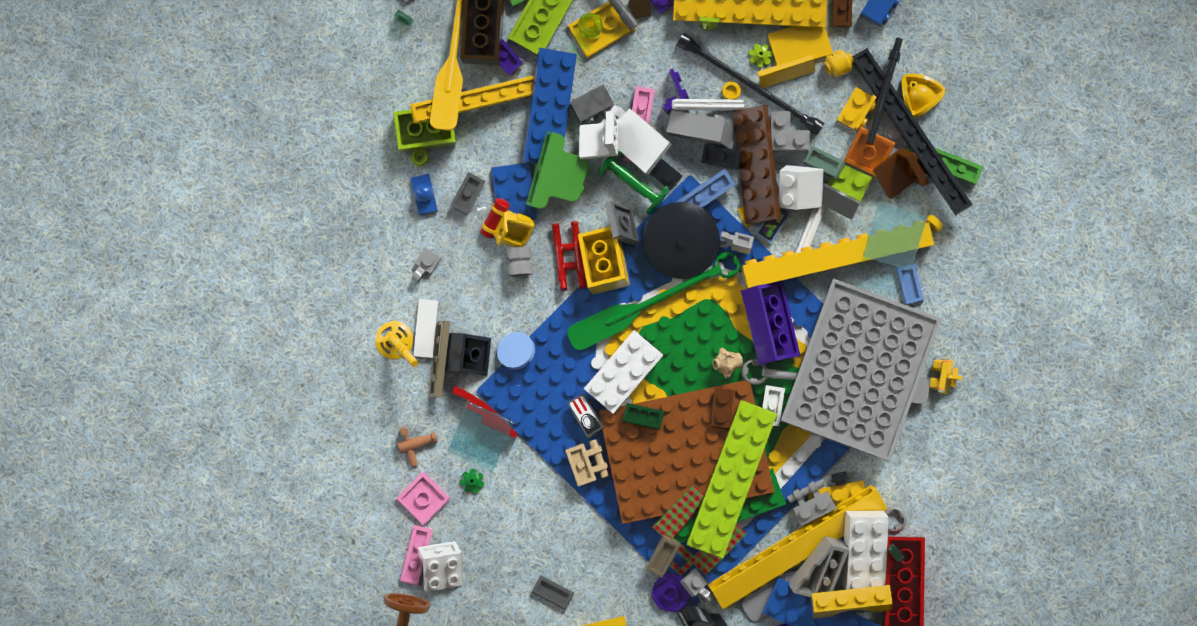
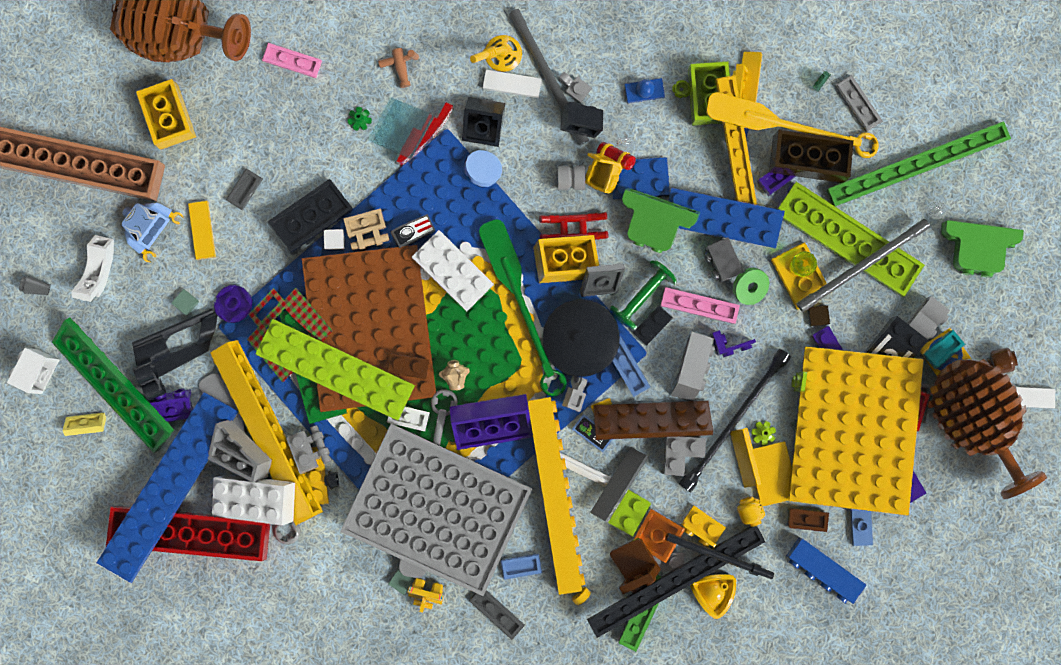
camera: 95 degrees right, 0 degrees up
(365, 323) = (521, 25): none -> dark grey piece
(405, 91) = (748, 75): none -> yellow bracket
(423, 498) = (346, 70): bright pink tile -> none
(439, 359) = (480, 93): dark tan tile -> none
(441, 566) = (278, 81): white bracket -> none
(460, 254) = (581, 119): none -> black brick
(467, 193) = (642, 132): dark grey plate -> none
(577, 521) = (310, 216): none -> black hinge
(599, 139) = (688, 263): white bracket -> none
(599, 495) = (333, 239): none -> white tile
(620, 68) = (757, 292): none -> tile
(639, 140) = (686, 300): white tile -> none
(643, 416) = (406, 286): dark green plate -> none
(662, 556) = (267, 296): dark tan tile -> none
(695, 584) = (236, 327): light grey plate -> none
(707, 104) = (716, 374): white axle -> none
(721, 156) = (663, 385): black plate -> none
(731, 91) = (729, 400): yellow tile -> none
(800, 187) = (626, 462): white slope -> none
(819, 159) = (650, 489): sand green tile -> none
(834, 602) = (200, 481): yellow arch -> none
(894, 551) = (245, 530): clear green tile -> none
(895, 236) = (570, 555): clear light blue piece -> none
(934, 402) = (400, 582): none -> sand green tile
(957, 304) = (497, 613): none -> dark grey tile

